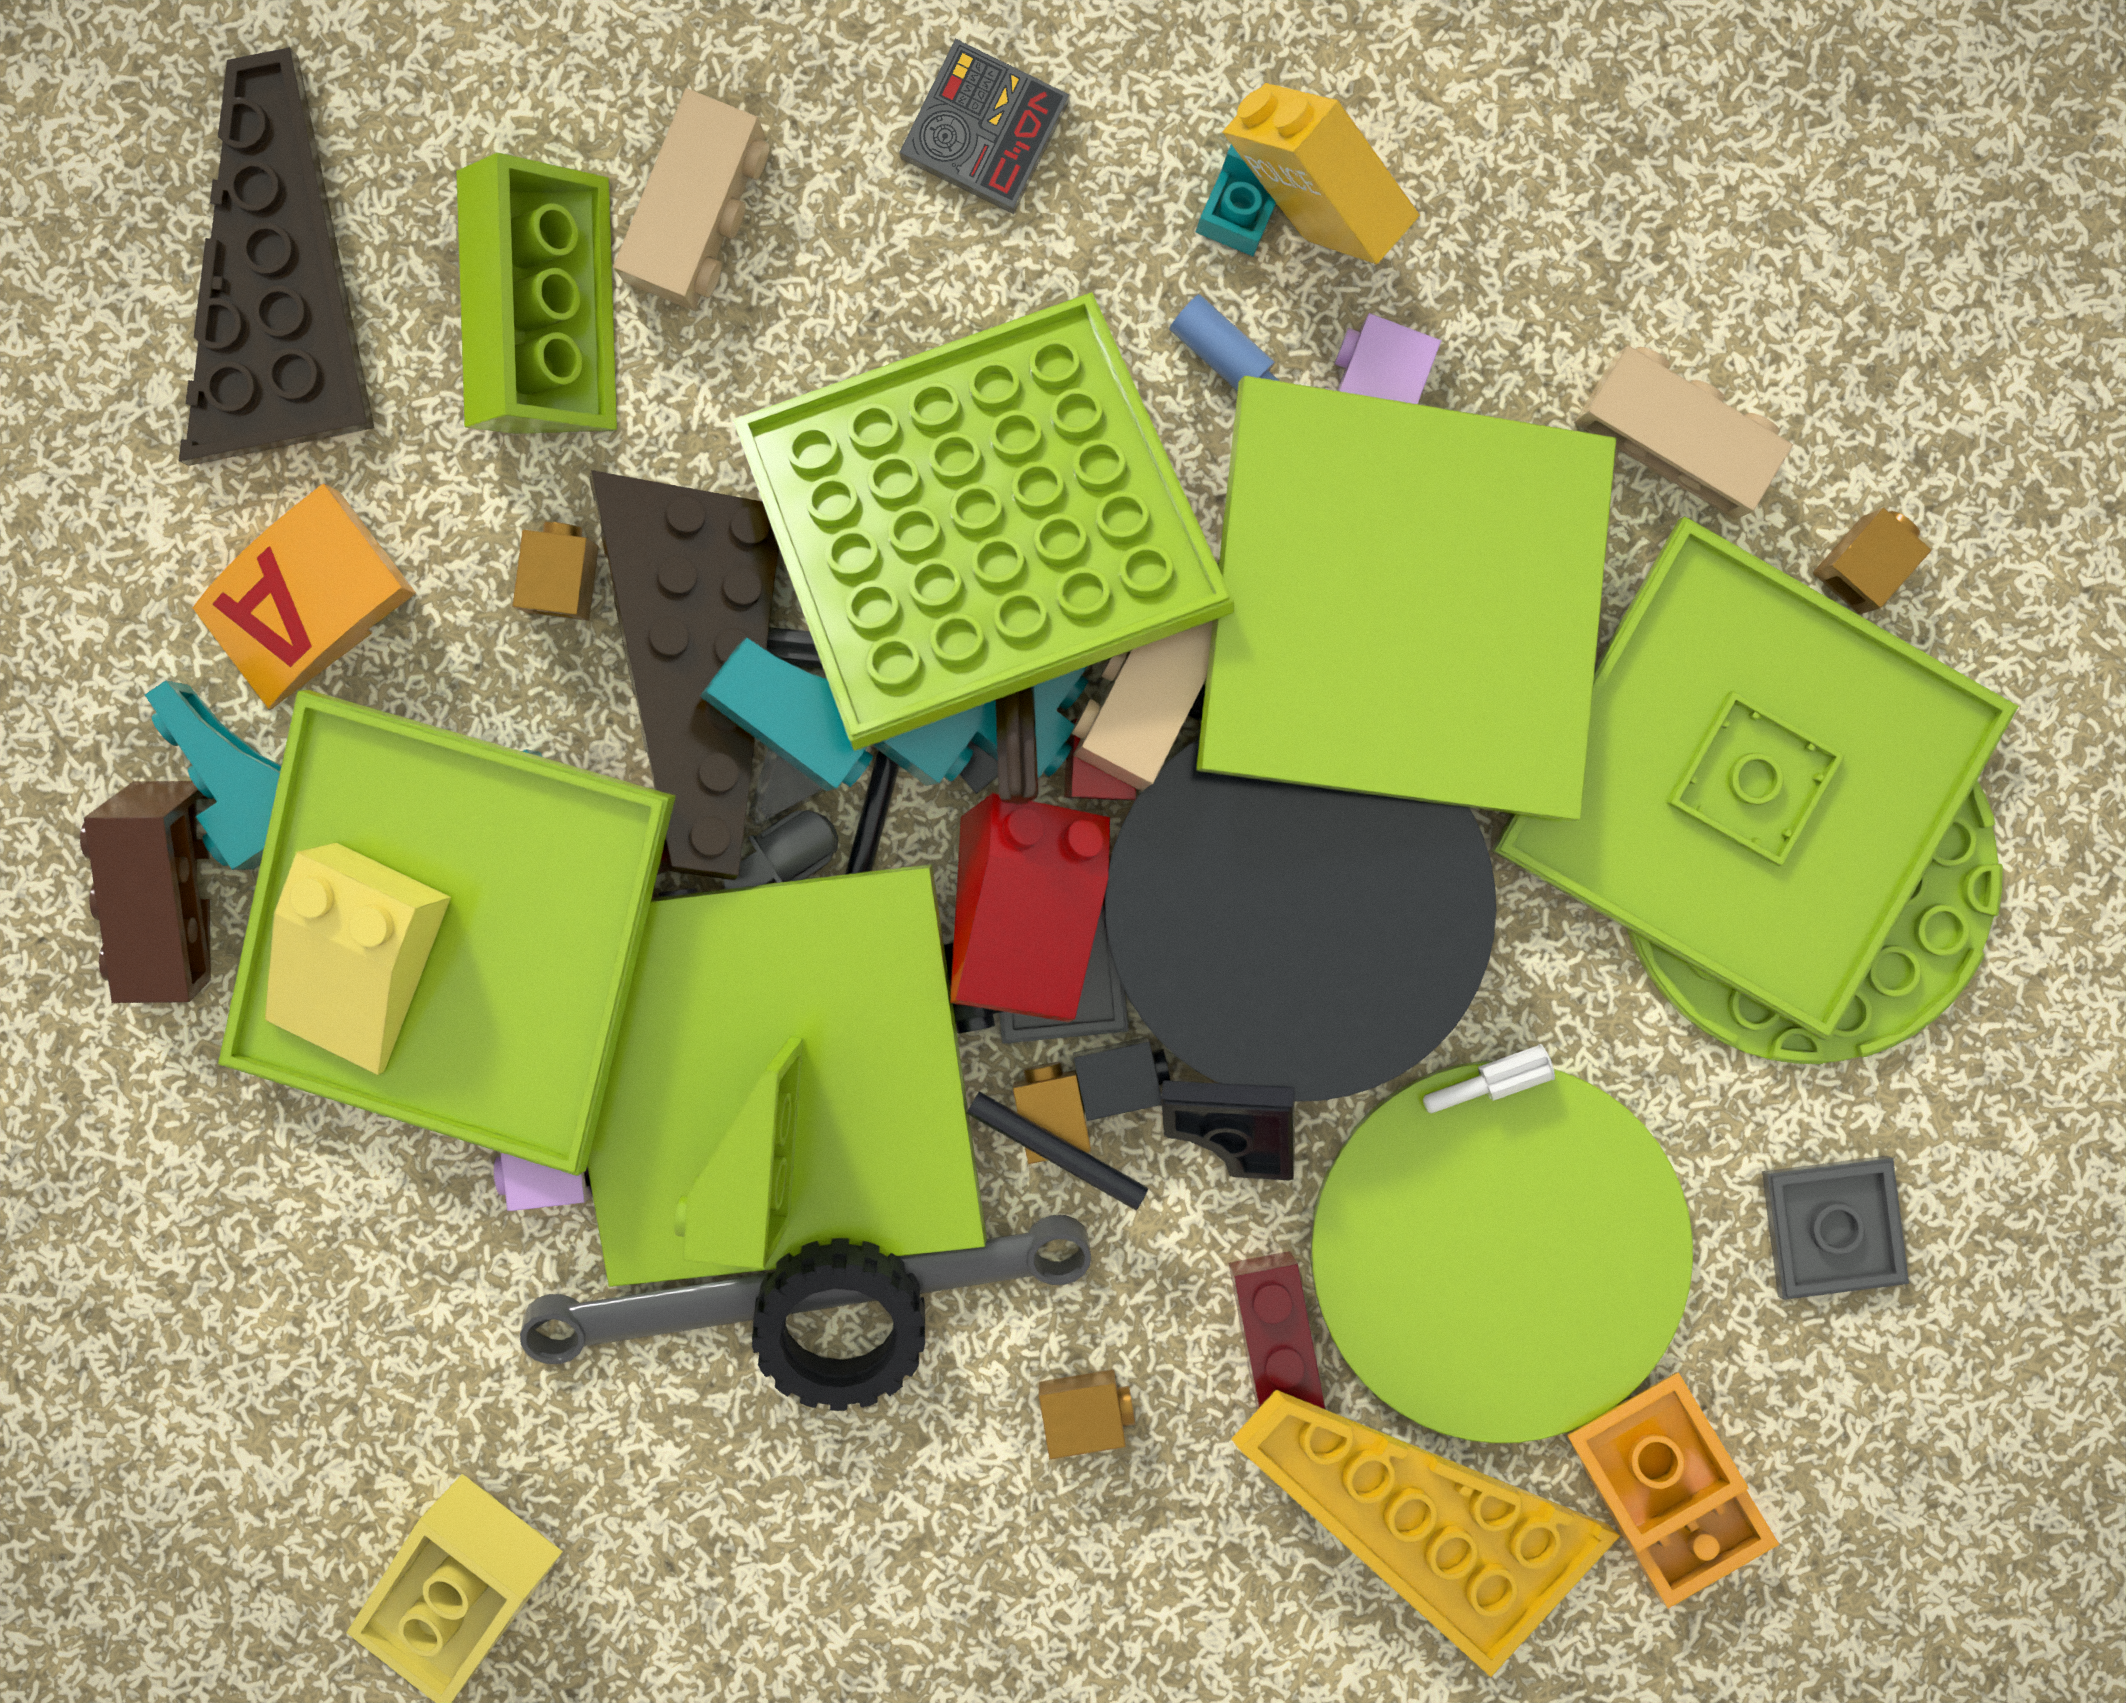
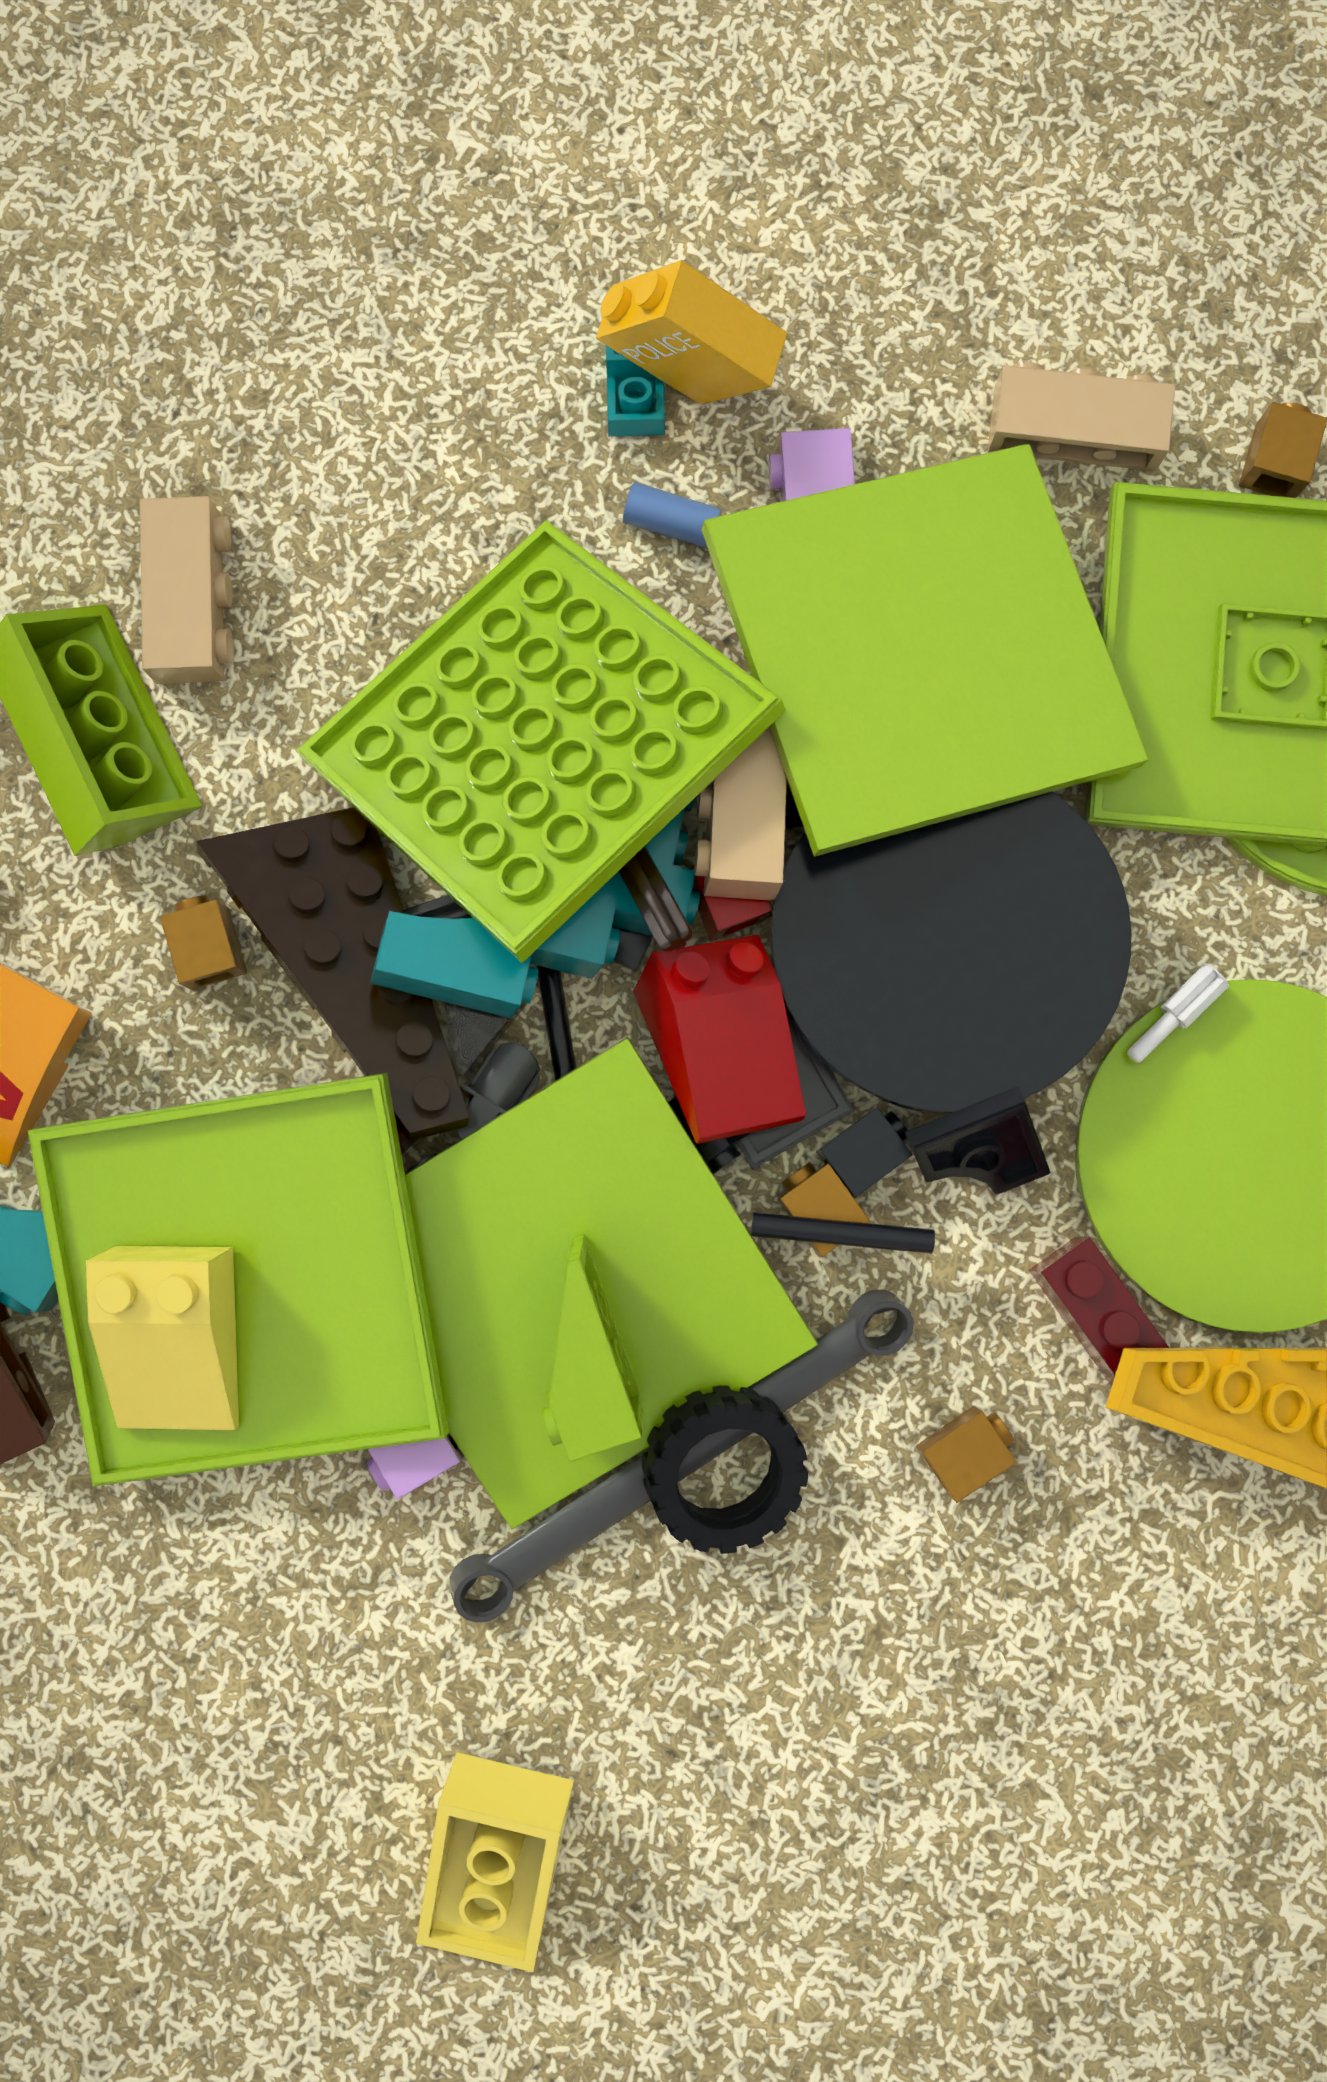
camera: 25 degrees left, 5 degrees down
(984, 126) = (398, 428): tile -> none

